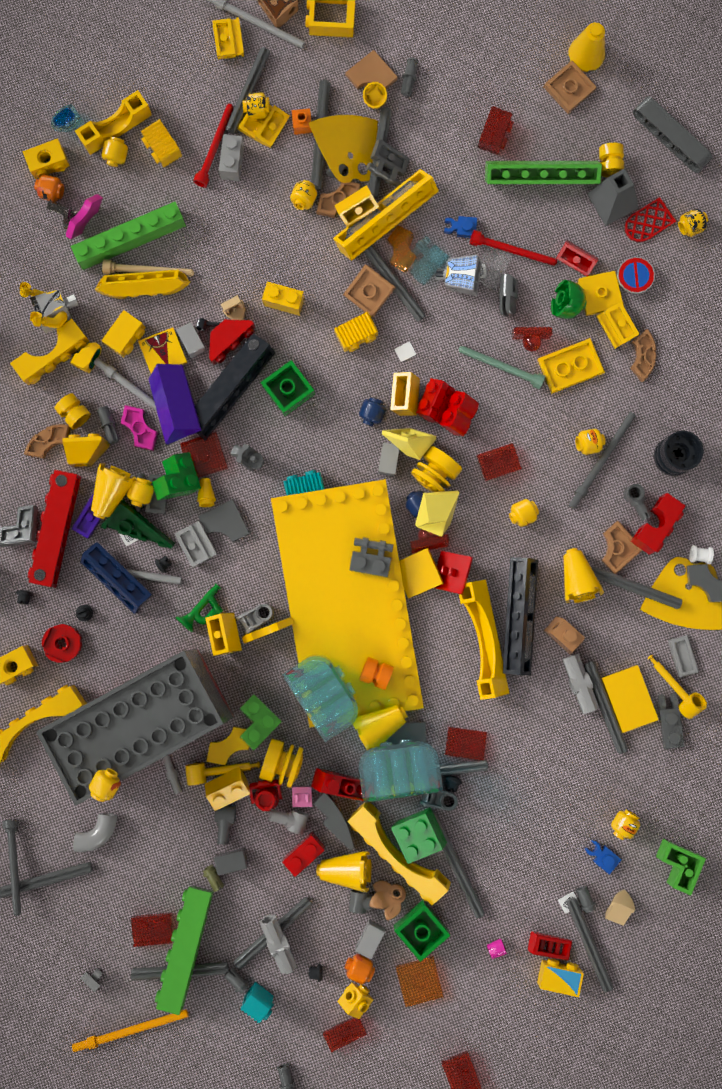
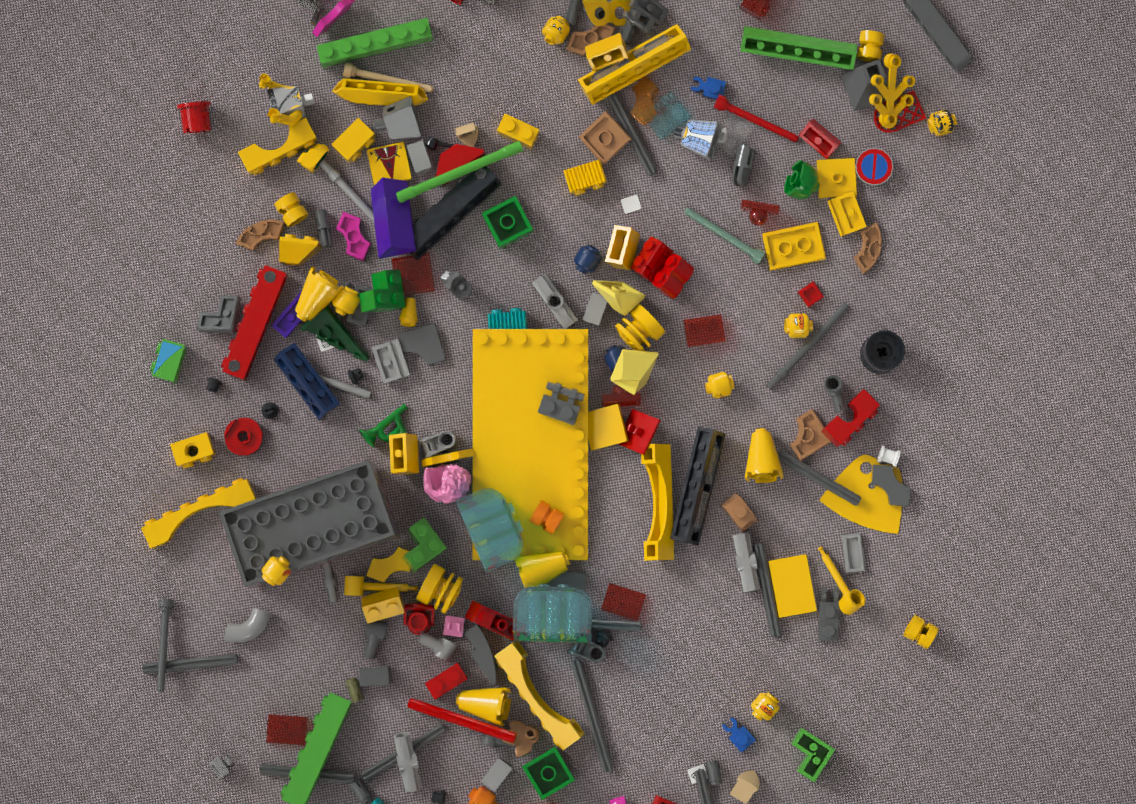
camera: 15 degrees right, 0 degrees up
(165, 306) = (400, 120): none -> torso
(188, 372) = (505, 152): none -> bright green piece
(270, 656) = (446, 483): none -> bright pink hair
(326, 892) = (462, 720): none -> red axle
(339, 449) = (547, 292): none -> light grey piece
(419, 835) = (561, 681): brick -> none
(595, 409) = (810, 294): none -> red tile
(641, 221) = (891, 93): none -> yellow plant

